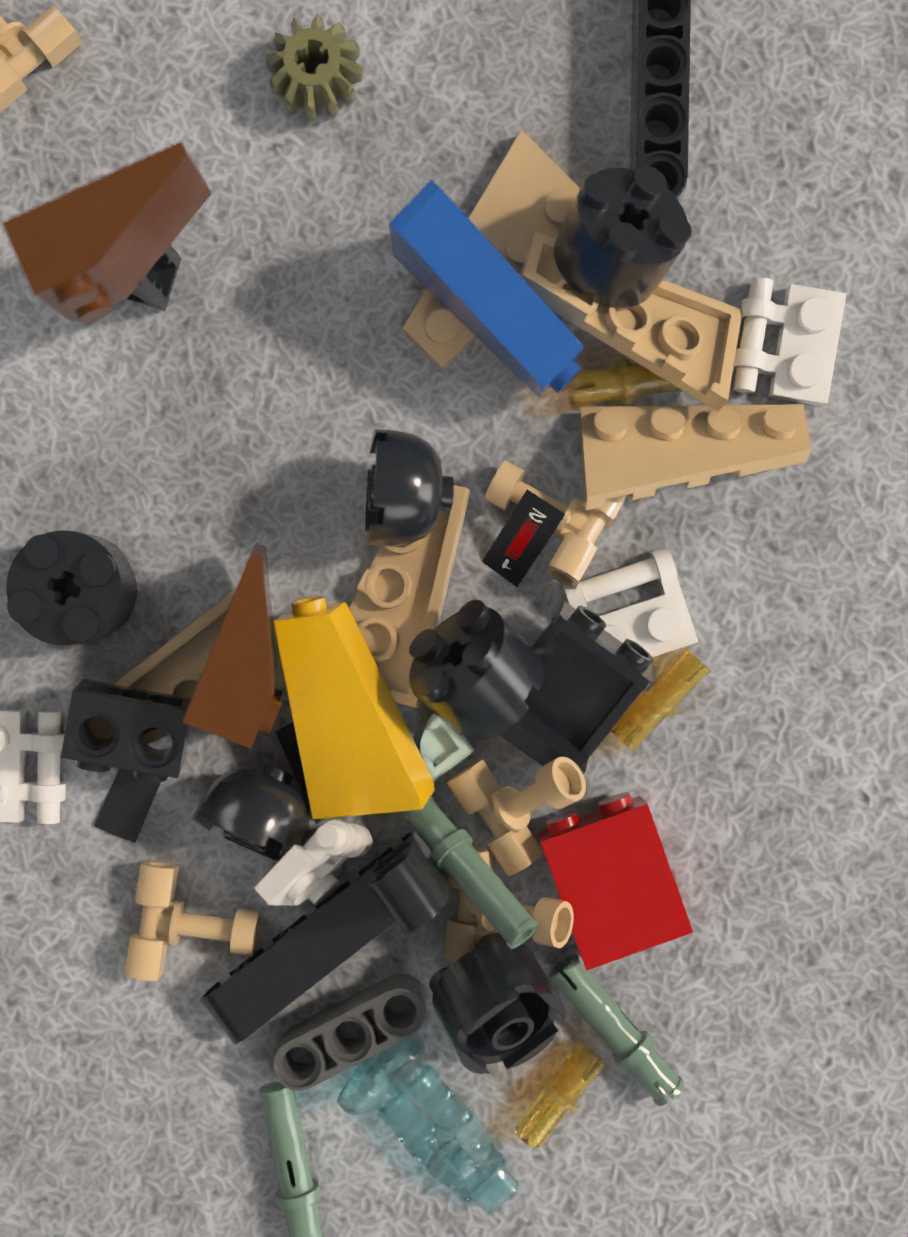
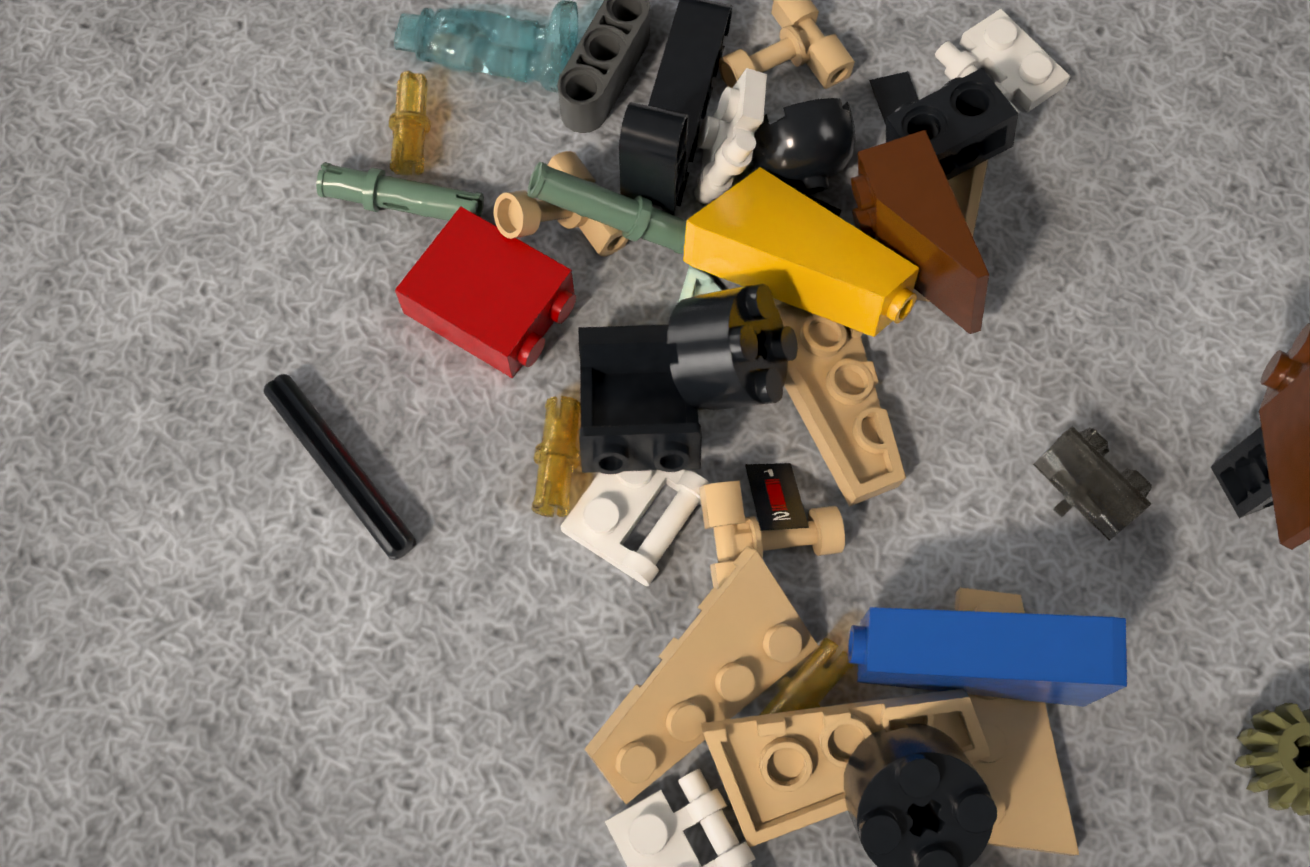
camera: 140 degrees right, 20 degrees down
(40, 596) = (1081, 202): black brick -> none
(280, 363) = (1092, 483): none -> clear smoke hips
(404, 489) = (911, 442): black cylinder -> none
(496, 1005) = (511, 132): black brick -> none
(508, 810) = (611, 286): tan bar -> none
(827, 822) = (340, 467): none -> black axle

